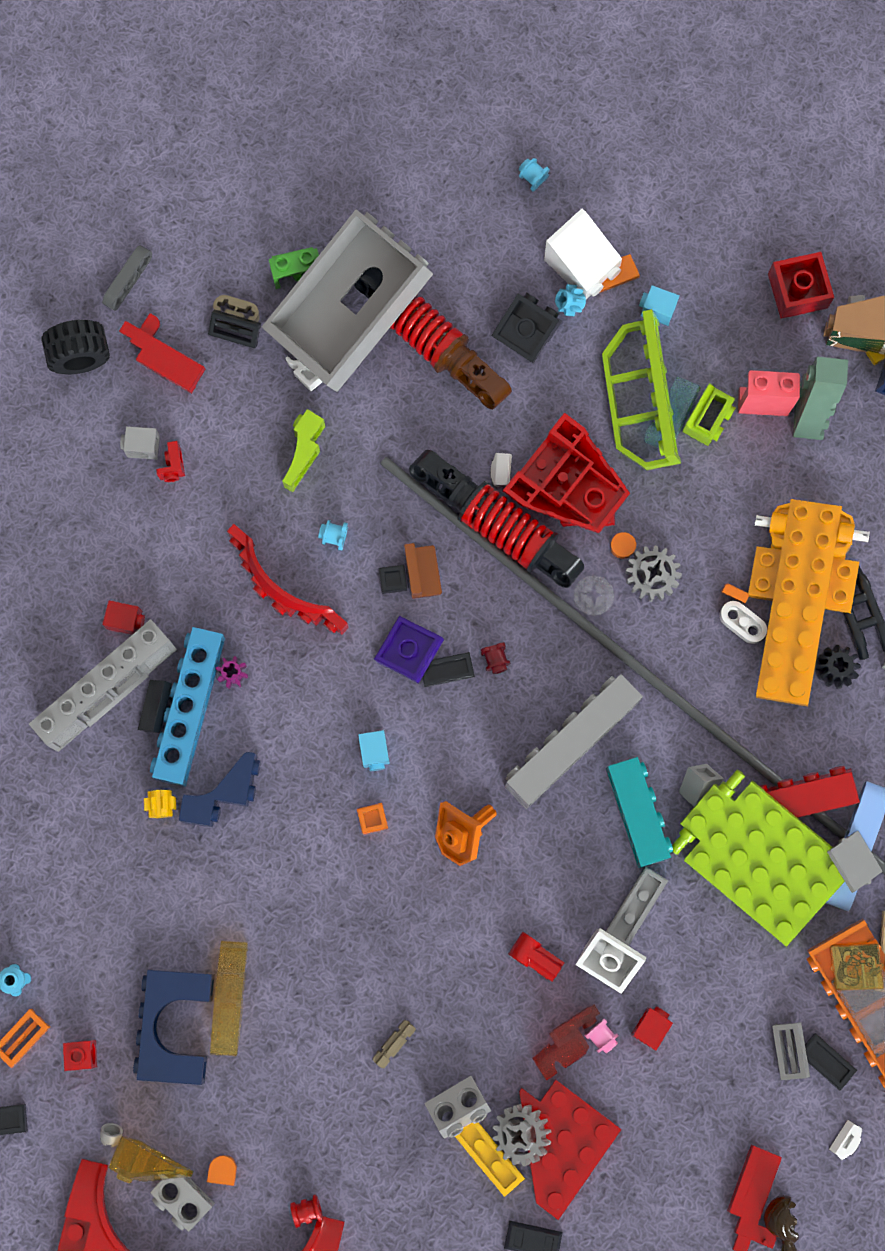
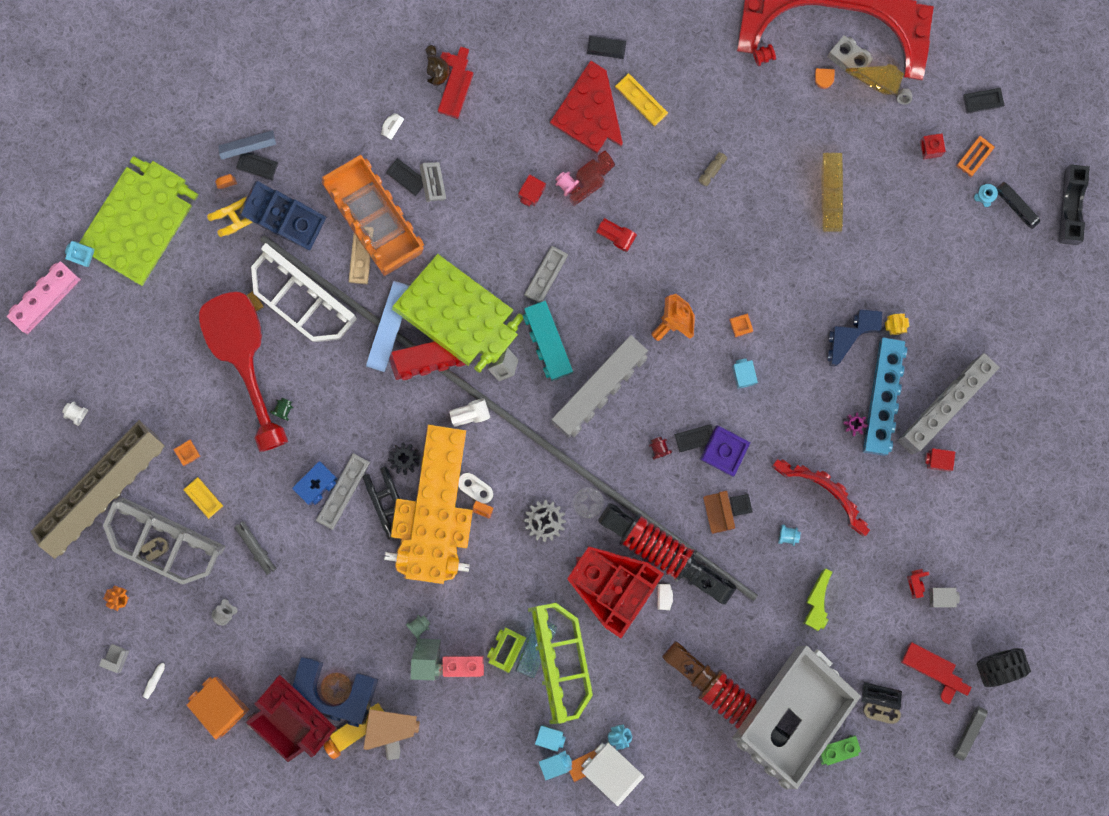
camera: 175 degrees right, 5 degrees up
(154, 706) = (909, 395): black tile -> none
(154, 1059) = (879, 146): dark blue arch -> none
(454, 1101) = (667, 133): light grey brick -> none
(522, 1134) = (619, 111): light grey gear -> none
(527, 326) = (652, 713): black plate -> none
(610, 960) = (564, 233): white slope -> none
(623, 545) = (568, 542): orange tile -> none
(653, 271) = (555, 765): none -> medium azure brick
(742, 723) = (474, 411): none -> white piece
(800, 285) = (439, 761): red brick -> none
(822, 451) = (419, 625): none -> sand green brick
(854, 861) = (393, 311): light grey piece -> none
(857, 967) = (388, 240): clear yellow piece -> none

